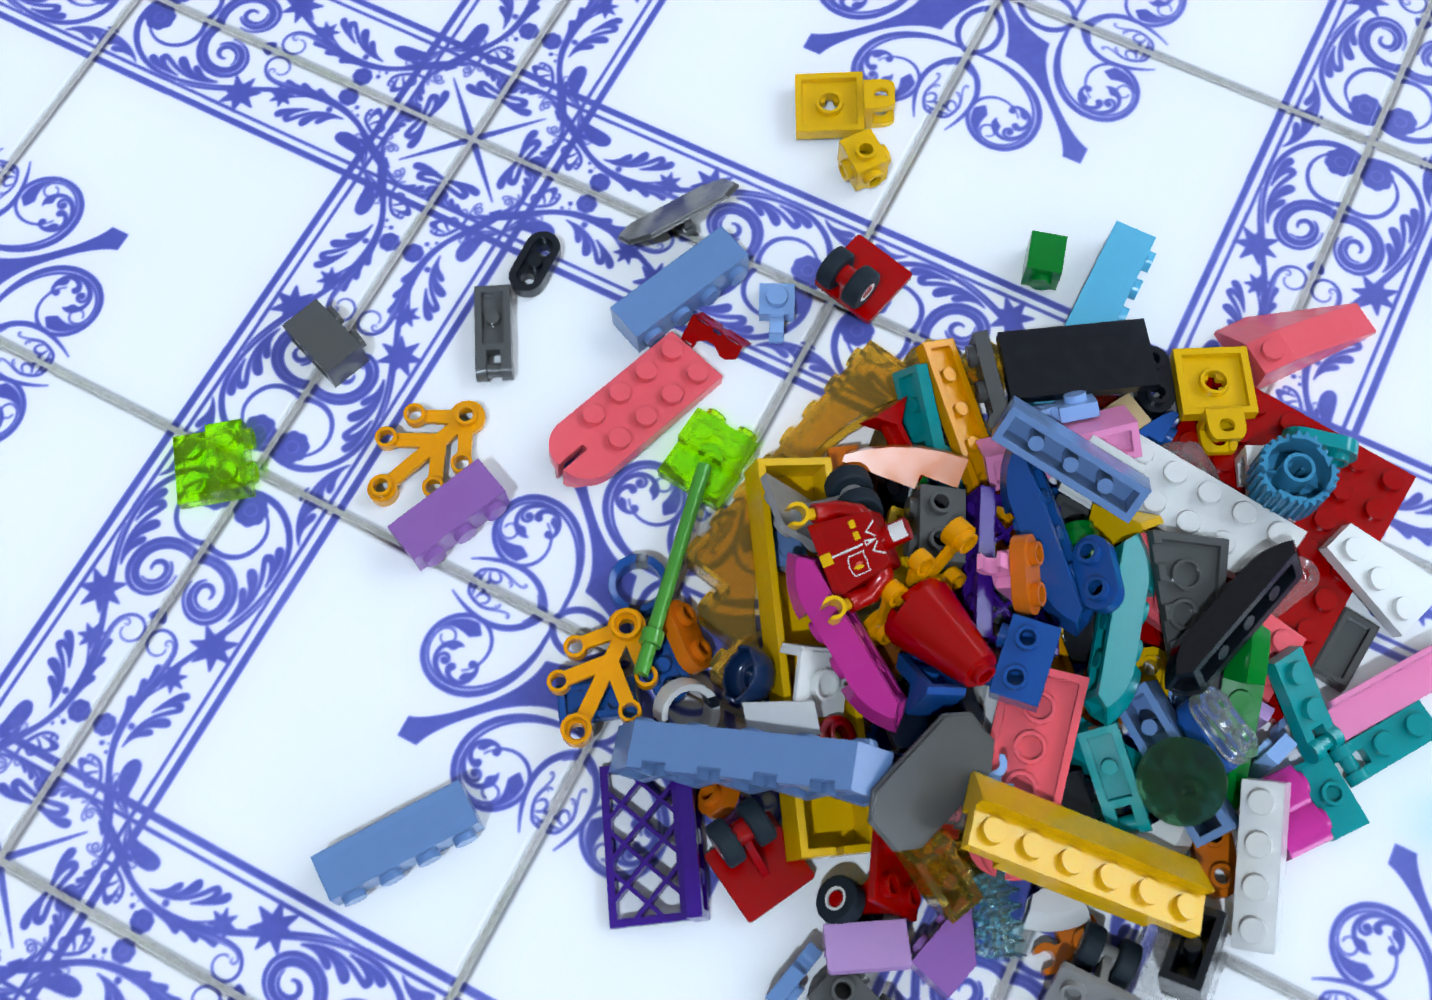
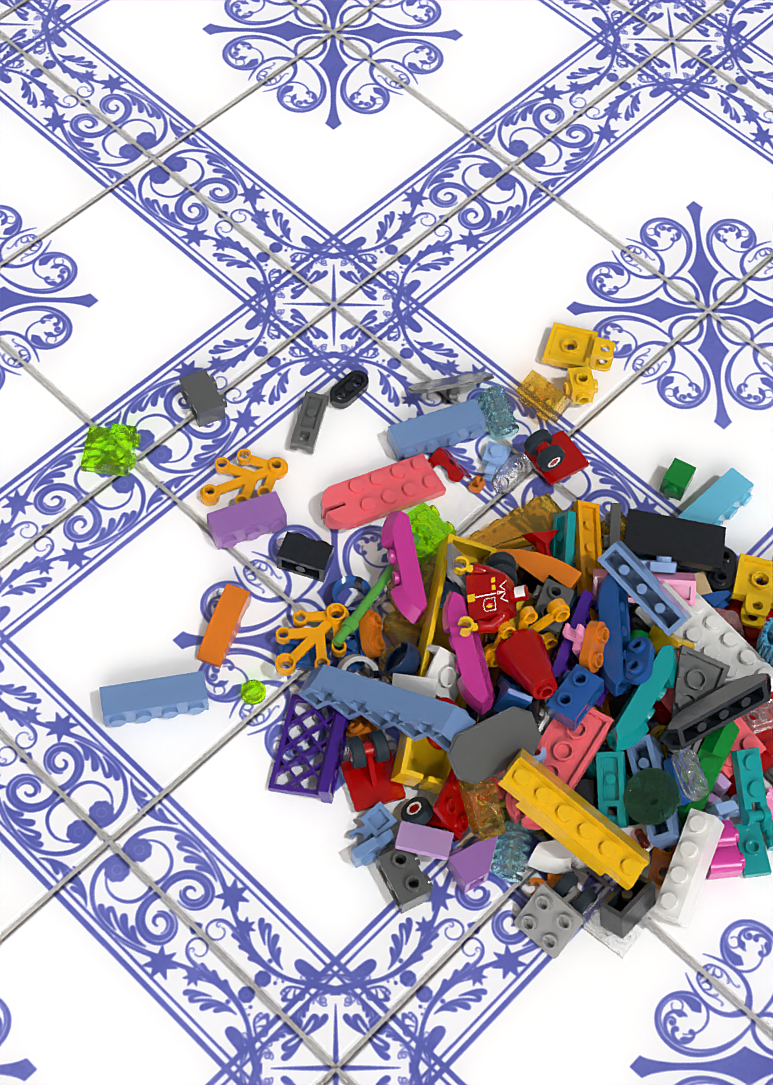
camera: 10 degrees right, 10 degrees down
(466, 692) = (224, 625): none -> orange slope
(541, 782) = (253, 692): none -> clear neon green plate
(552, 544) = (305, 556): none -> black brick
(712, 538) = (406, 573): none -> dark pink brick
(758, 236) = (498, 412): none -> clear light blue piece
(762, 354) = (476, 484): none -> orange rock
(786, 934) = (375, 823): none -> medium blue plate
(806, 326) = (510, 475): none -> clear plate
(817, 193) = (543, 396): none -> clear yellow brick
(1179, 840) = (642, 839): none -> clear red piece

